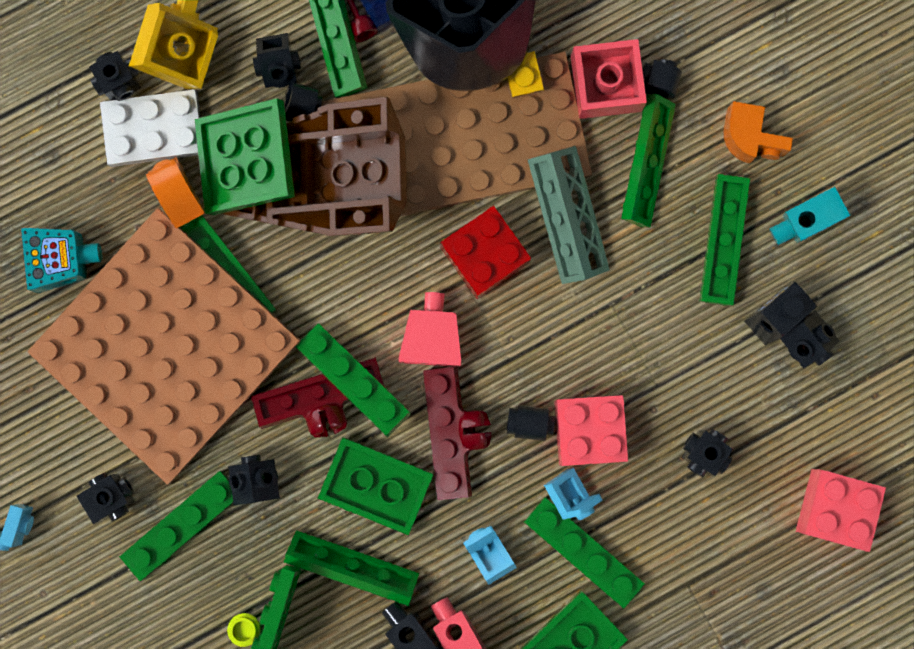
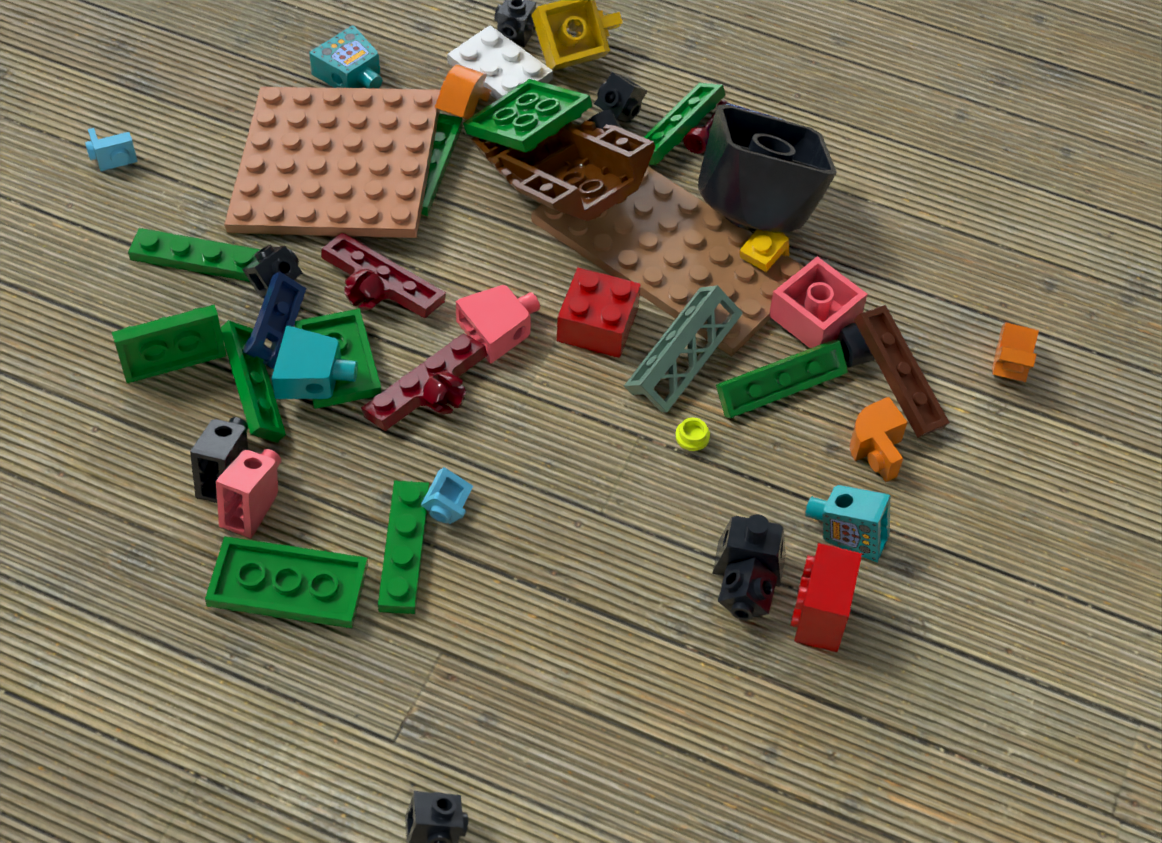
camera: 50 degrees right, 30 degrees down
(96, 500) = (181, 188): black brick -> none
(310, 514) = (277, 312): none -> dark blue plate
(353, 380) = (412, 284): green plate -> none
(382, 521) = (309, 366): none -> teal torso
(489, 554) = (346, 467): medium azure bracket -> none
(530, 422) = (484, 430): black brick -> none
(591, 430) = (516, 475): coral brick -> none
(644, 267) = (692, 434): none -> neon yellow plate
(695, 453) = (574, 575): black brick -> none
(715, 70) = (901, 371): none -> copper plate
(724, 240) = (770, 476): green plate -> none
(840, 509) = (617, 719): coral brick -> none
(863, 292) = (825, 597): none -> red brick

